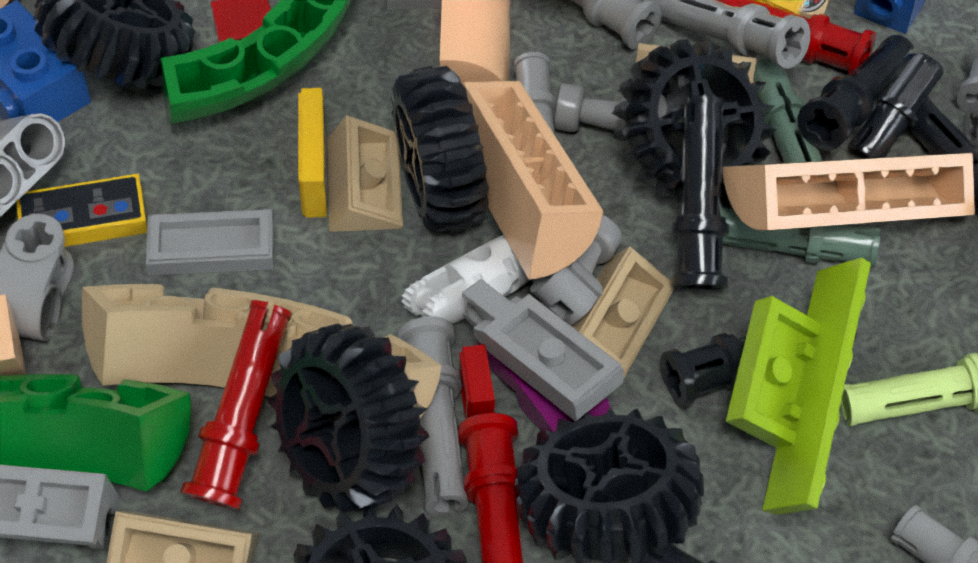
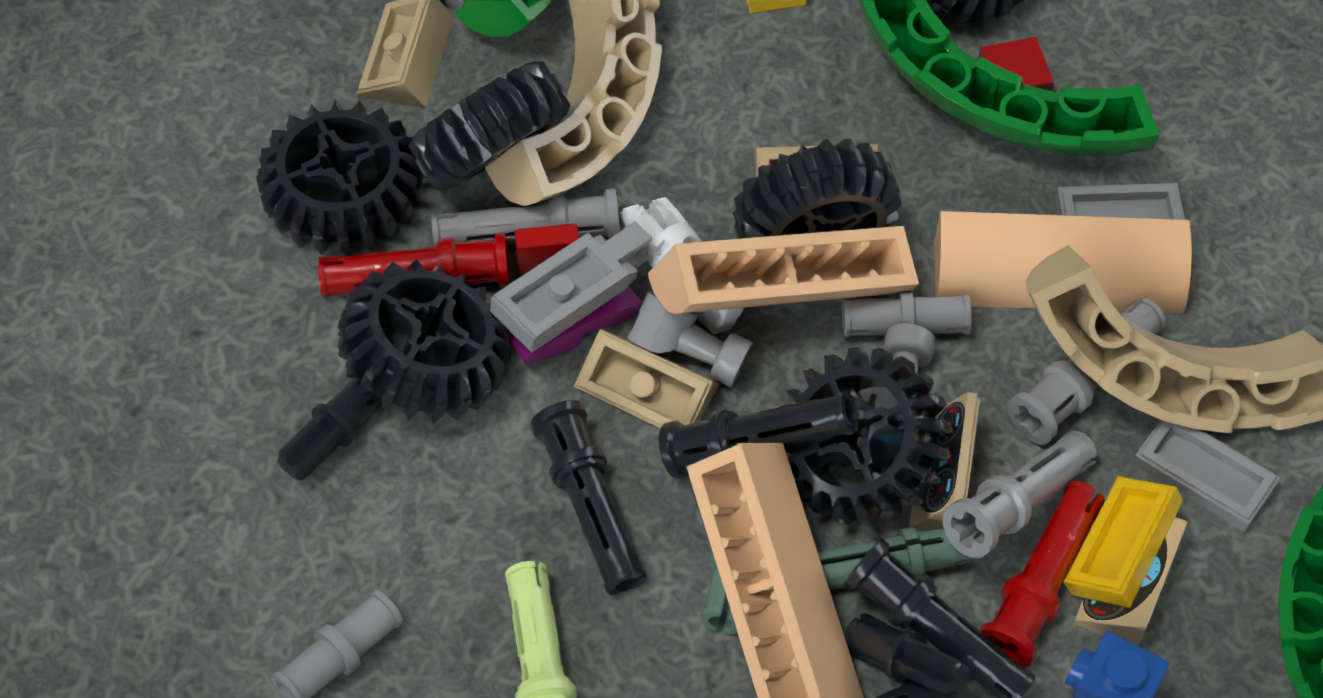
camera: 90 degrees right, 5 degrees up
(210, 242) = (733, 56): light grey tile -> none
(230, 437) = (494, 56): red pin -> none
(312, 153) = (832, 118): yellow tile -> none
(795, 382) = (536, 496): lime bracket -> none

